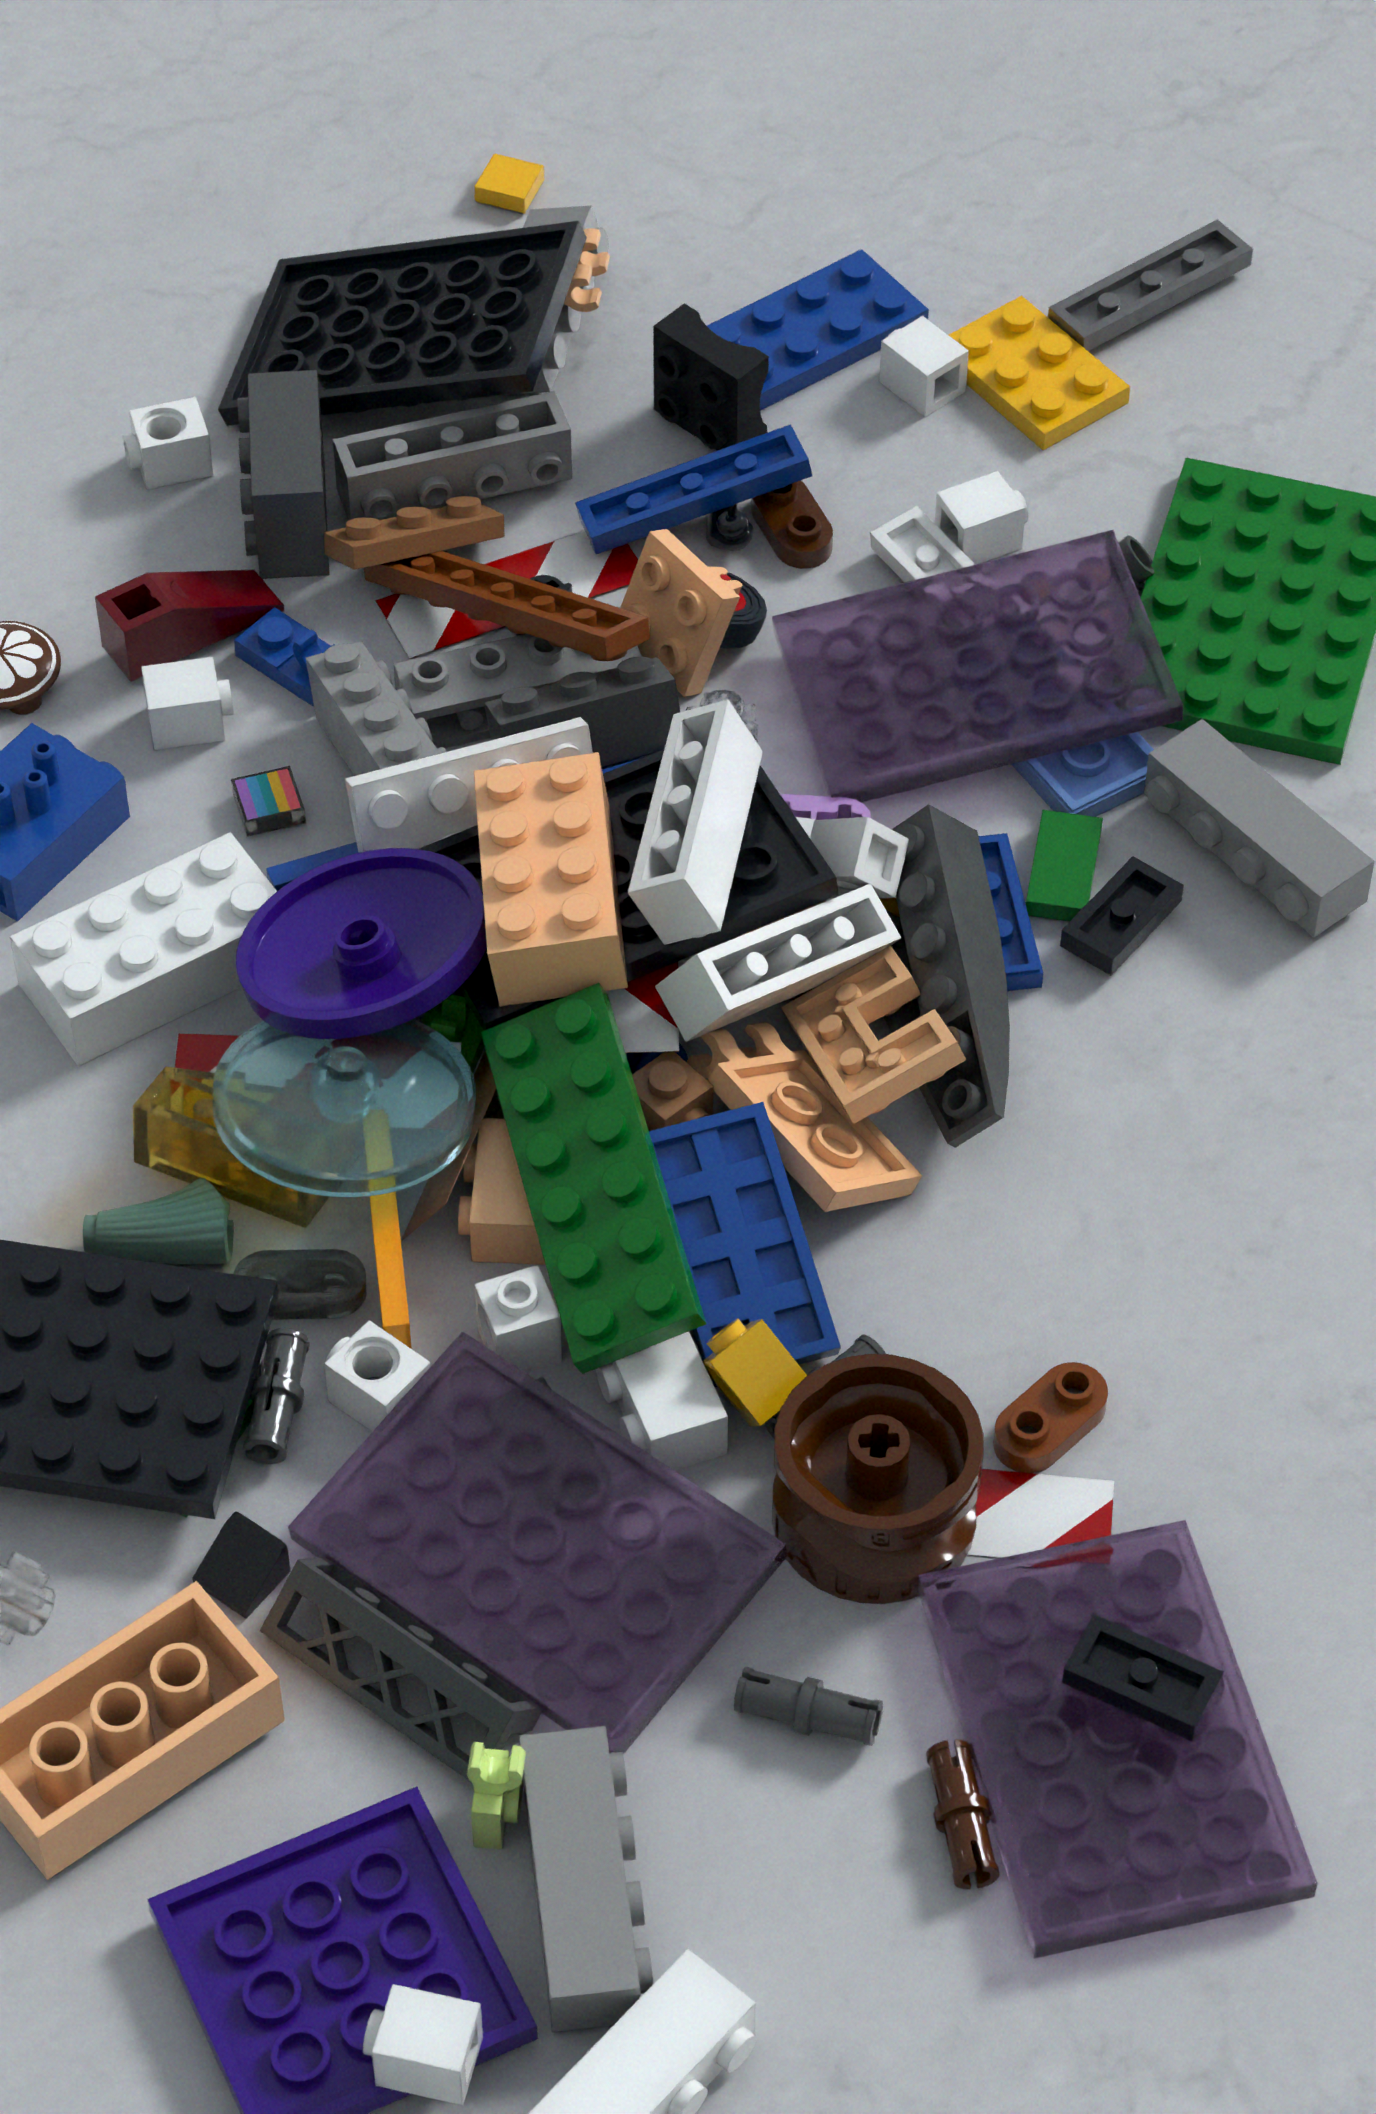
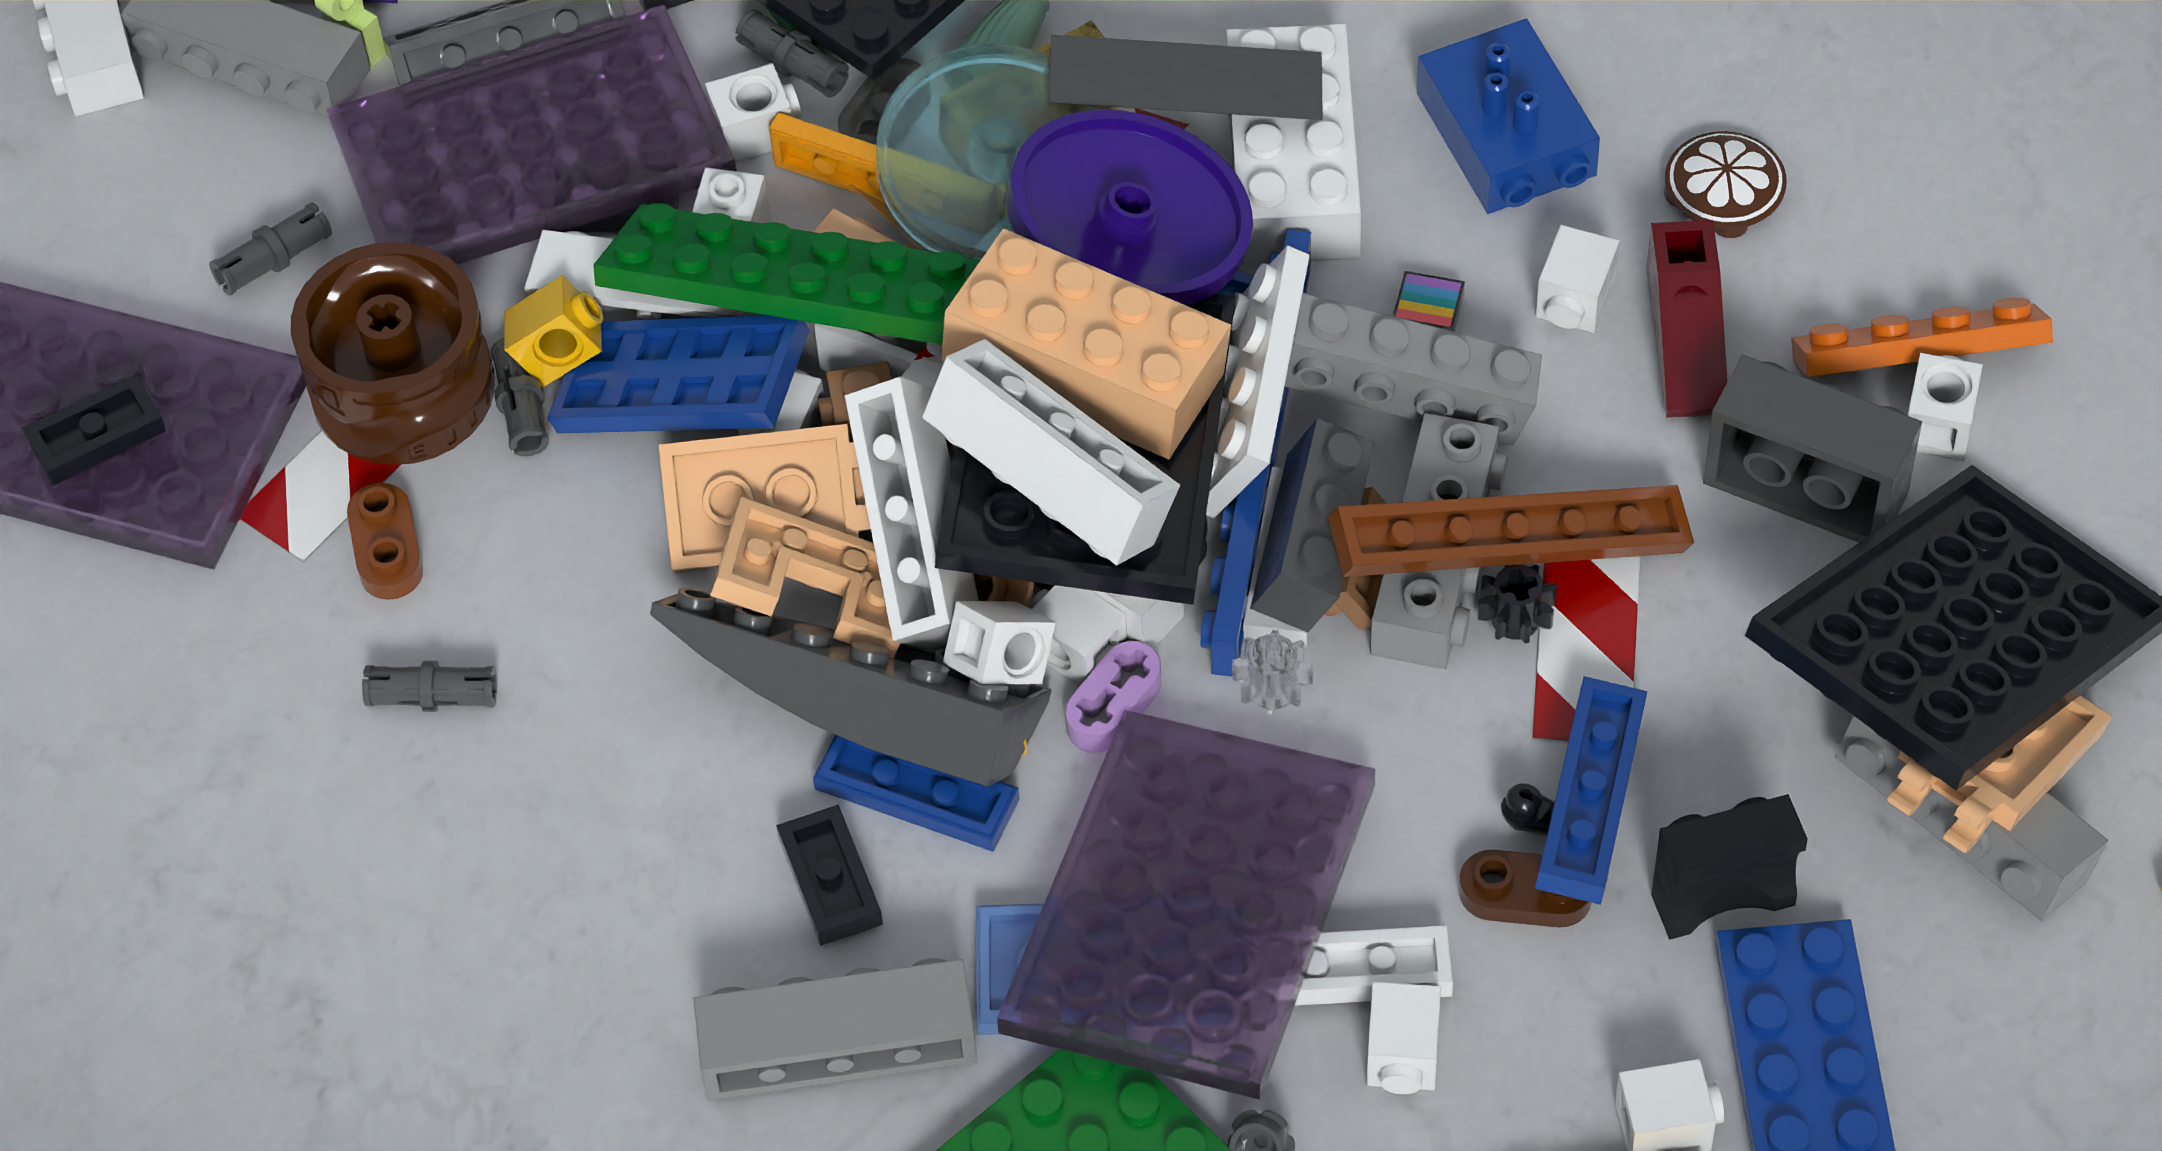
camera: 125 degrees right, 5 degrees up
(109, 480) = (1900, 341): none -> orange plate
(171, 990) = (1186, 77): none -> dark grey sticker
(279, 650) = (1597, 402): blue plate -> none
(413, 533) = (1677, 533): medium nougat plate -> none
(454, 455) = (1769, 563): light grey brick -> none
(690, 609) = (1425, 722): light nougat plate -> none
(962, 1814) = (113, 294): reddish brown pin -> none
(1063, 865) = (927, 872): green tile -> none
(1169, 1287) = (429, 686): none -> dark grey pin

